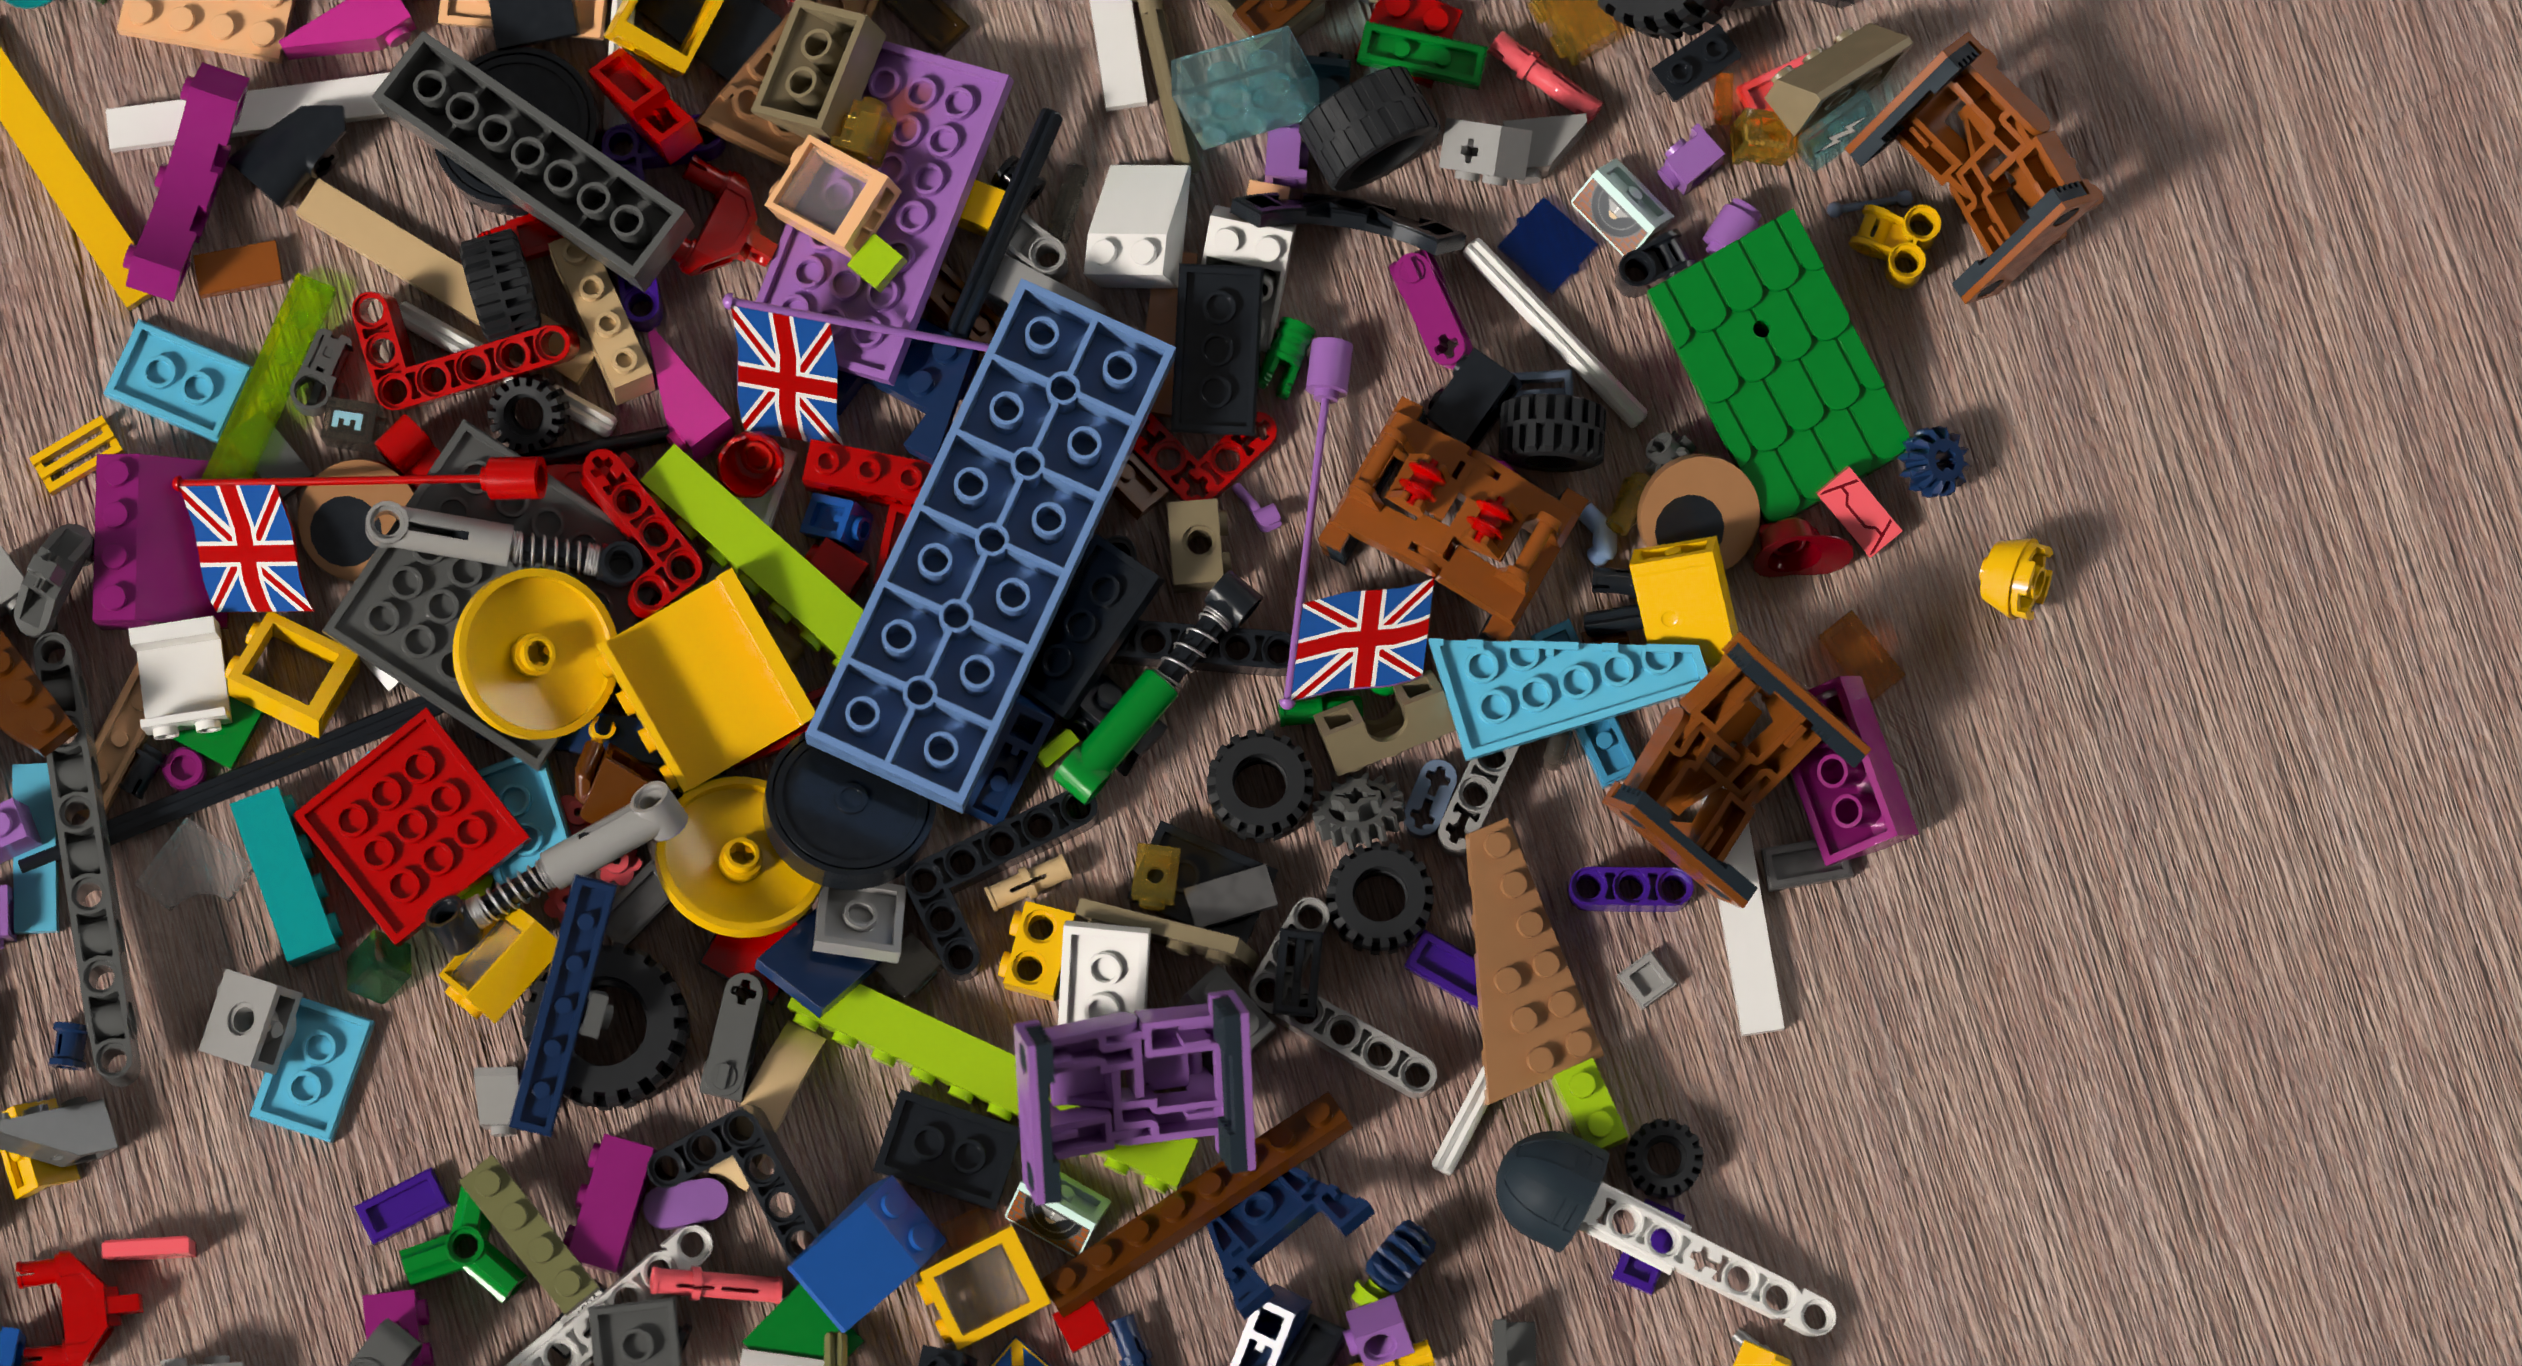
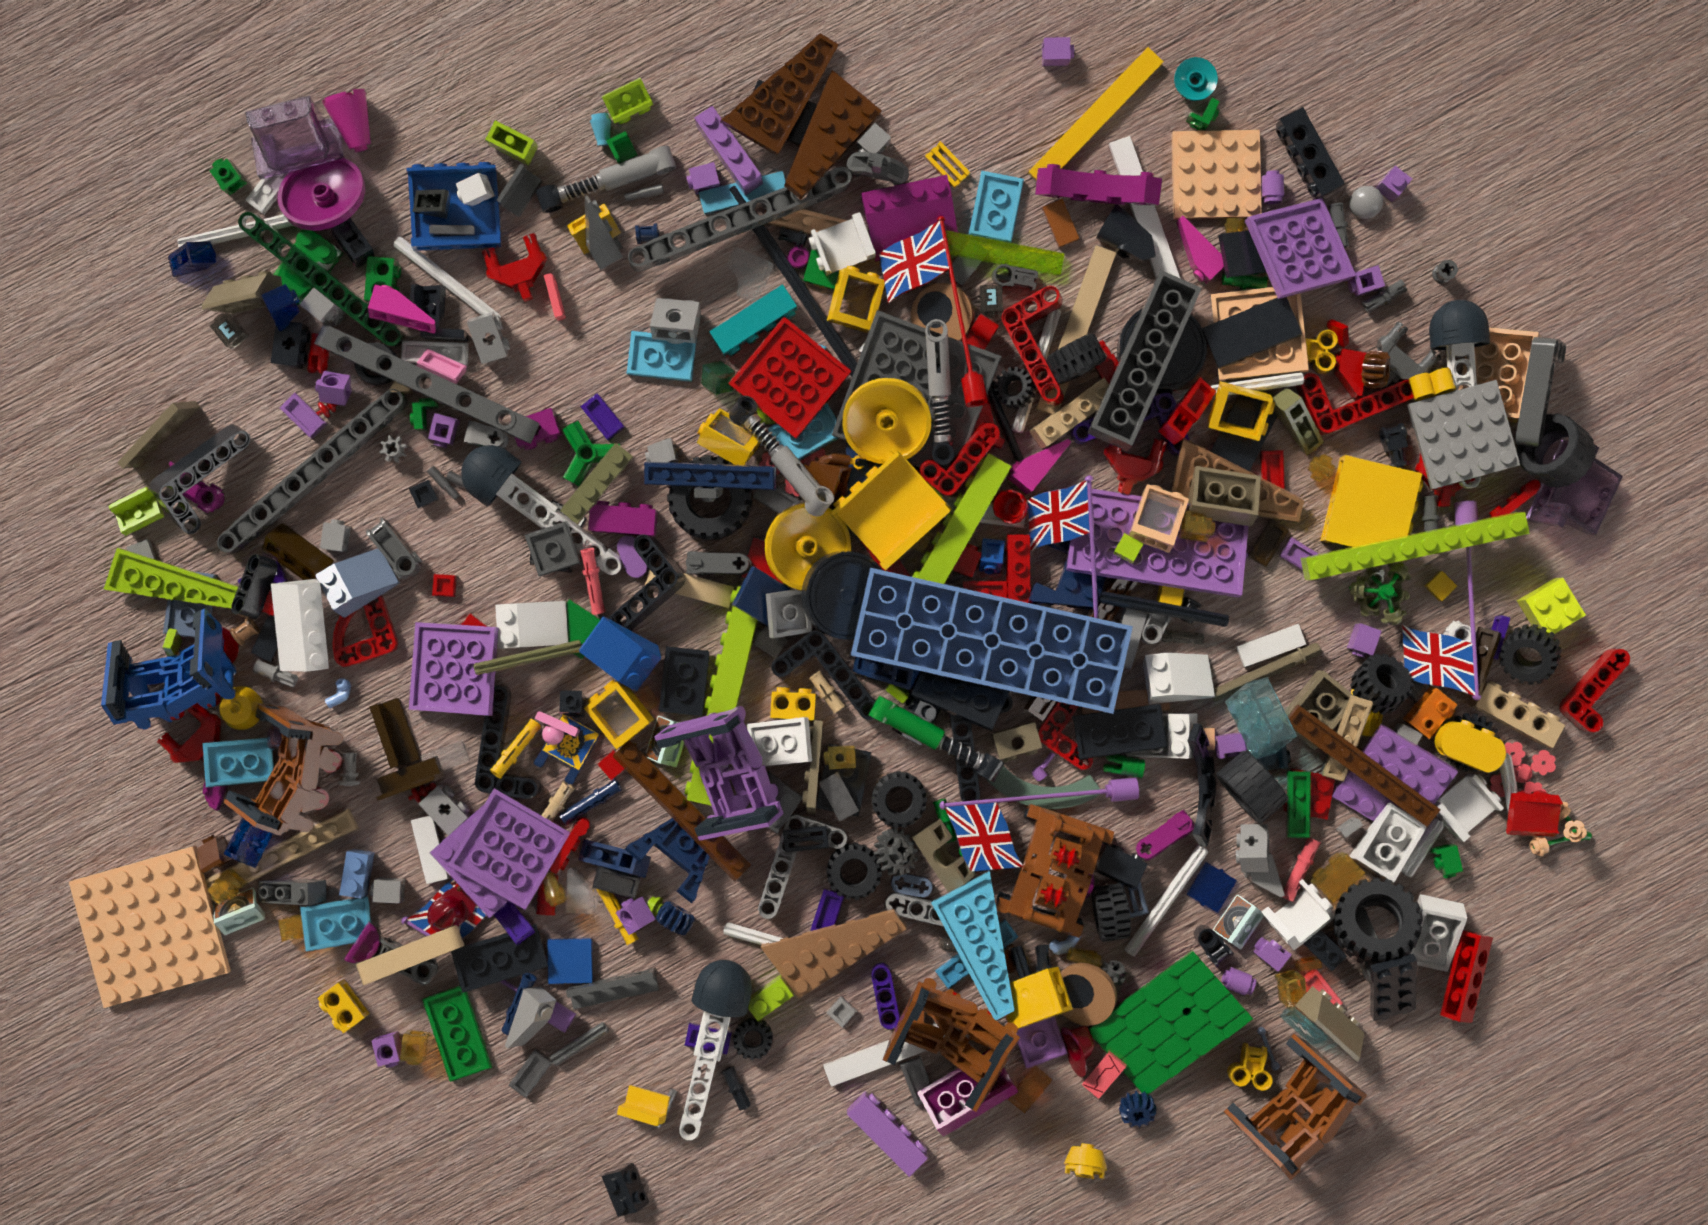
camera: 80 degrees right, 10 degrees up
(1279, 573) = (1015, 787): none -> sand green tile
(1634, 92) = (1301, 918): none -> white panel
(1753, 1210) = (736, 1088): none -> black axle
(1777, 616) = (1040, 1042): none -> medium lavender tile
(1892, 938) = (887, 1133): none -> medium lavender brick

